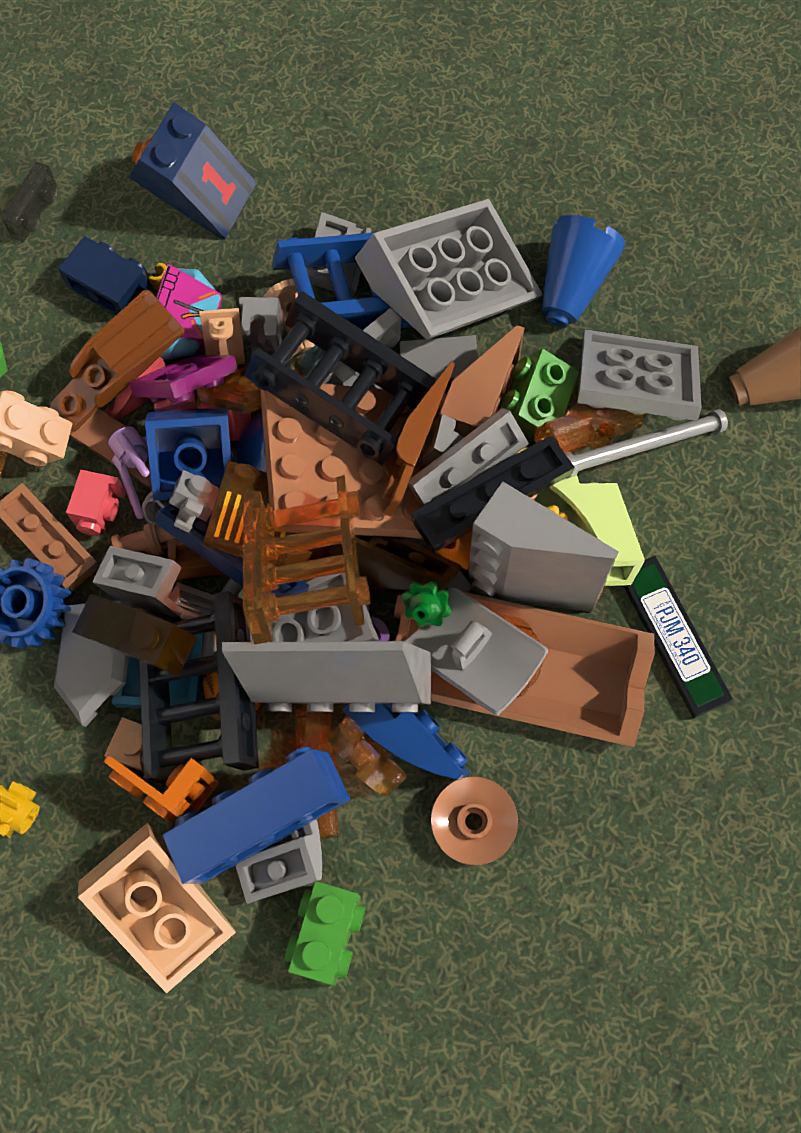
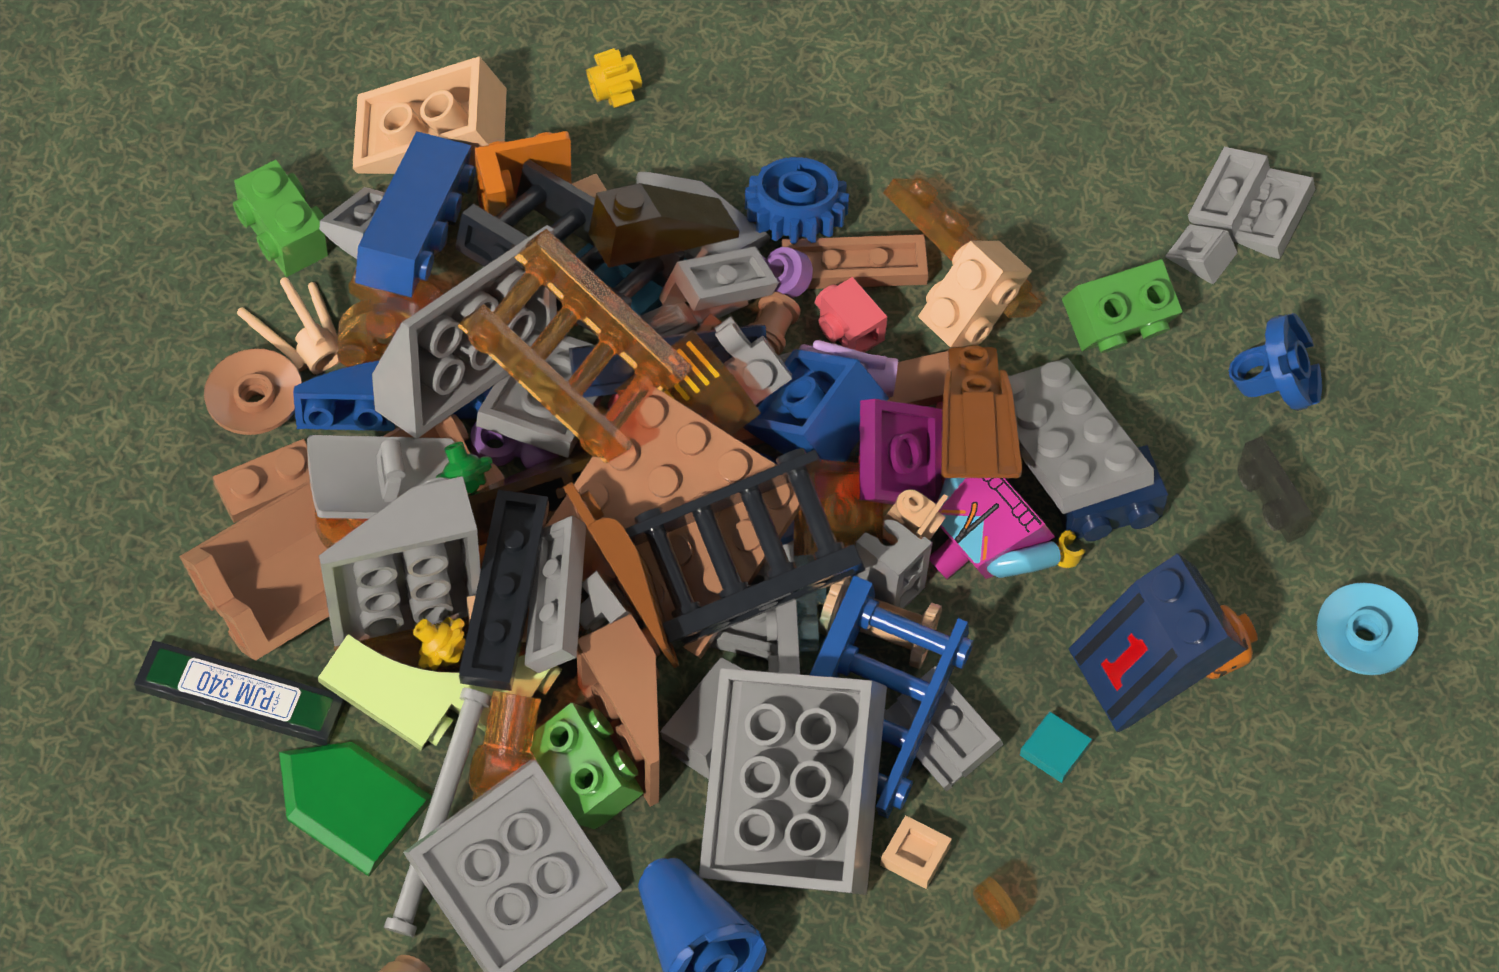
camera: 125 degrees right, 10 degrees down
(83, 95) = (1373, 610): none -> medium azure dish
(84, 565) = (796, 272): none -> medium lavender plate
(91, 291) = (1073, 438): none -> light grey plate
(294, 200) = (1055, 747): none -> teal tile
(401, 815) = (316, 344): none -> light nougat plant
(416, 157) = (996, 903): none -> clear orange tile
(420, 206) = (915, 852): none -> light nougat plate
(522, 756) = (262, 479): none -> nougat plate
(673, 515) = (349, 801): none -> green tile

